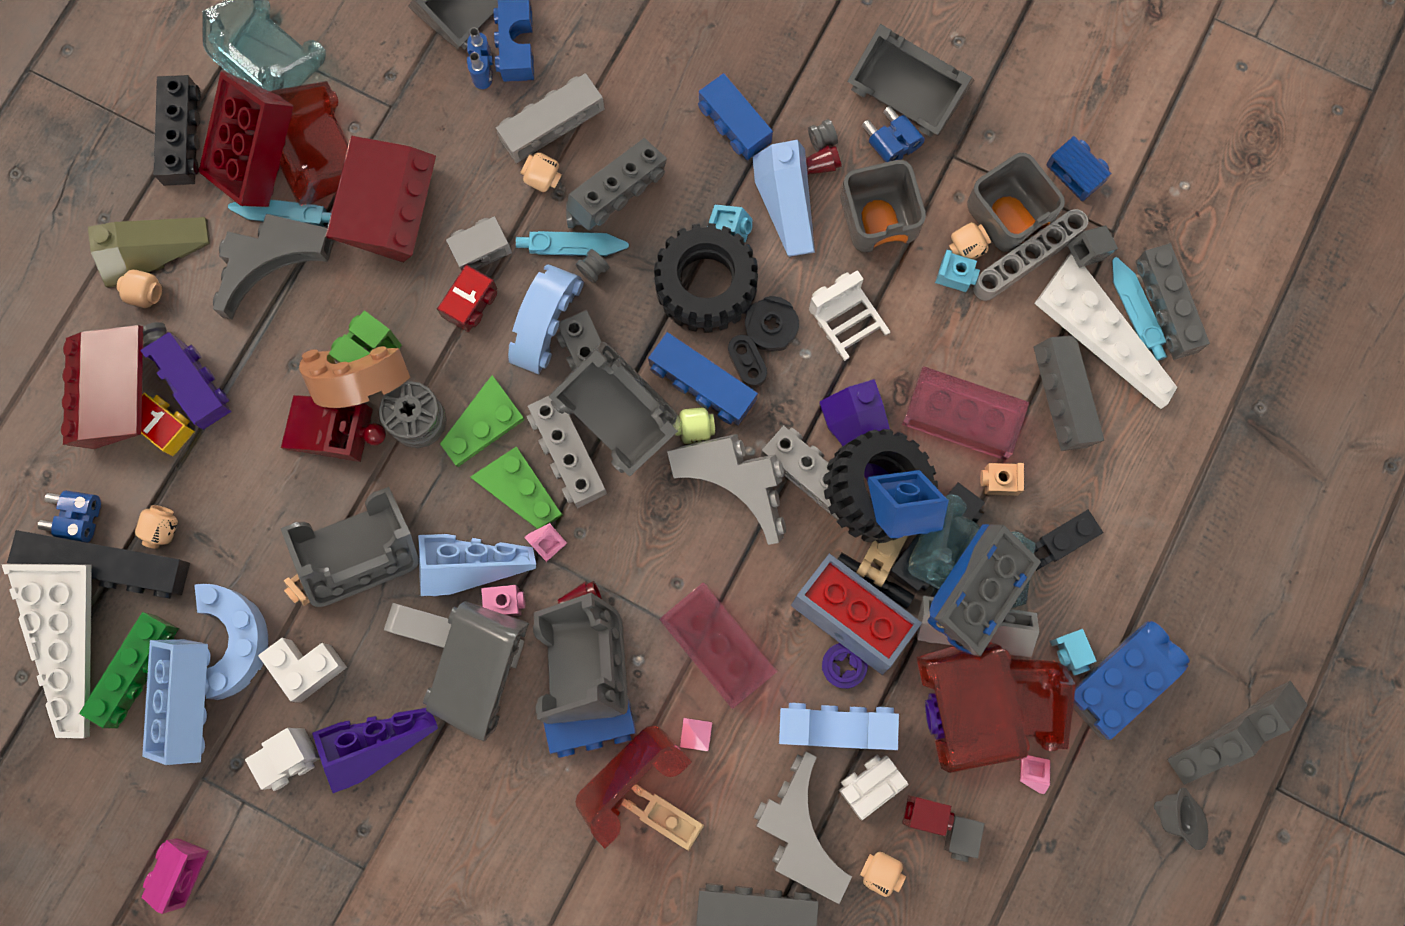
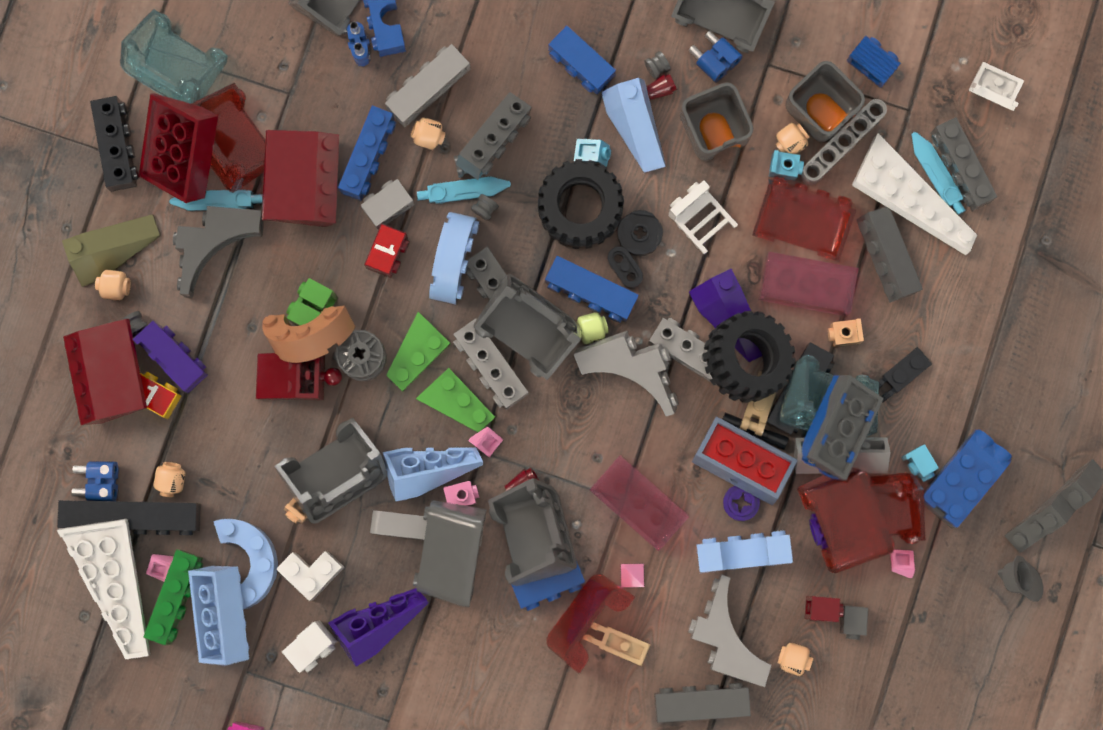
camera: 10 degrees left, 5 degrees up
(120, 628) = (159, 566): none -> bright pink slope
(465, 183) = (366, 153): none -> blue brick
(872, 786) = (777, 593): white brick -> none
(907, 504) = (772, 370): blue slope -> none
(971, 336) = (804, 218): none -> clear red windscreen
(1092, 246) = (893, 127): dark grey brick -> none
(1222, 218) = (996, 86): none -> white plate

